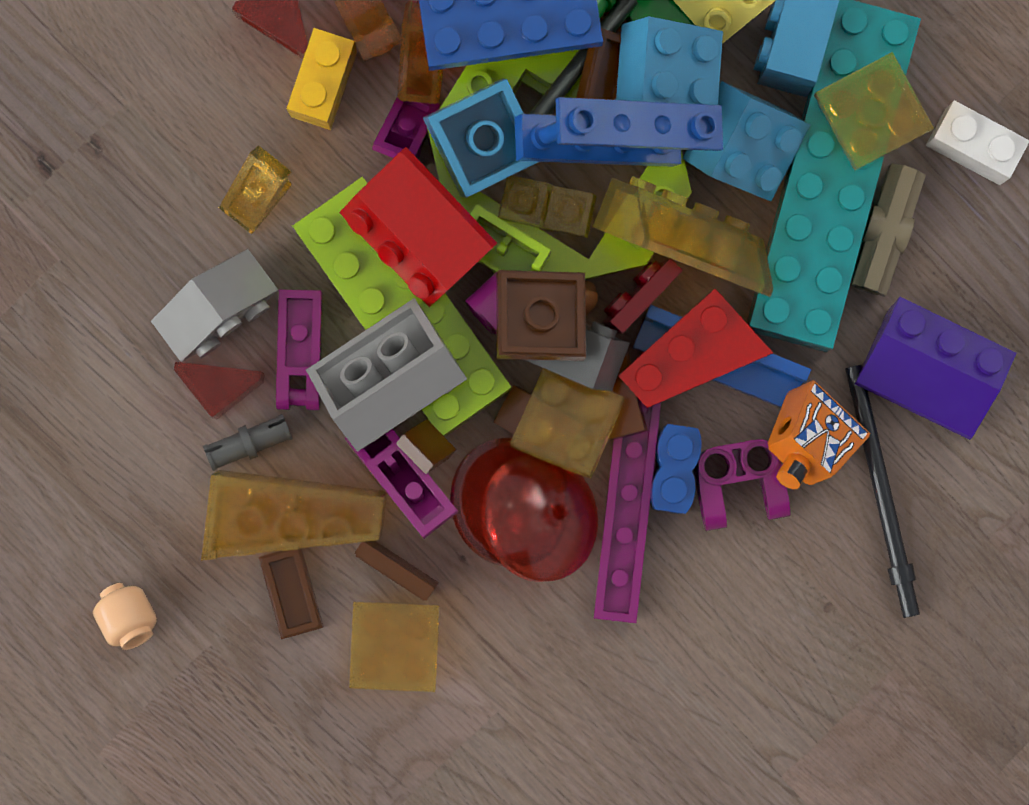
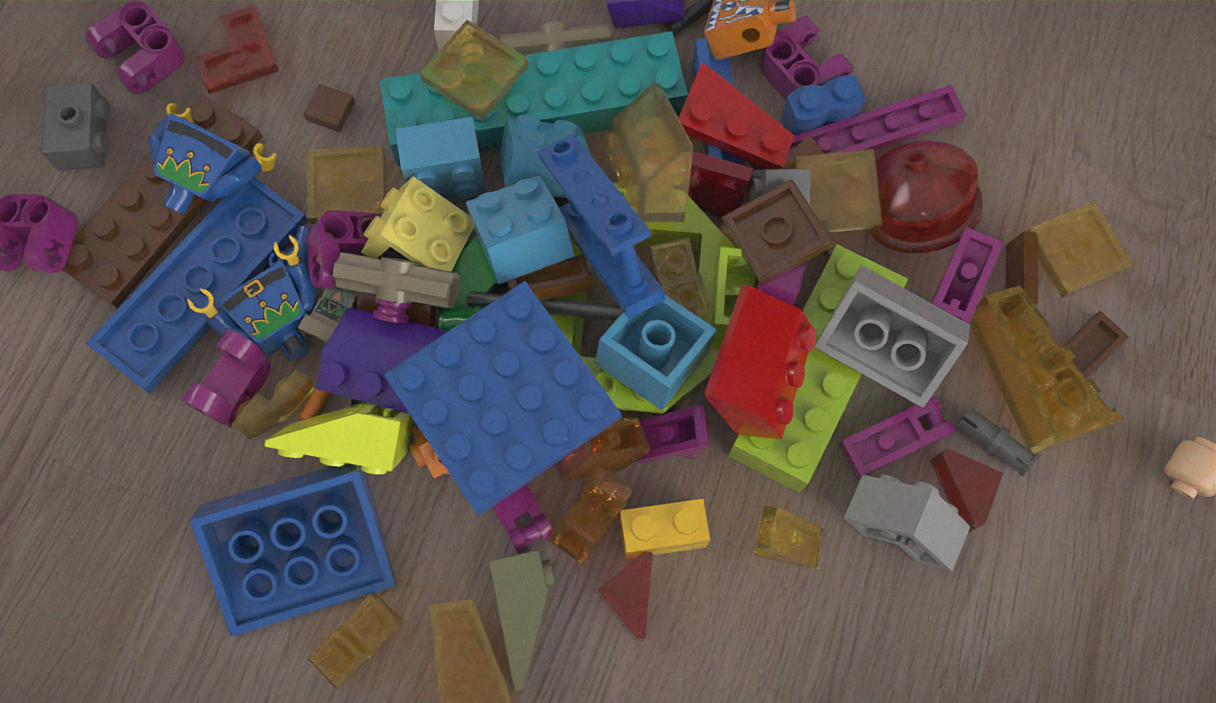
camera: 115 degrees left, 15 degrees down
(426, 446) = (928, 279): reddish brown tile -> none

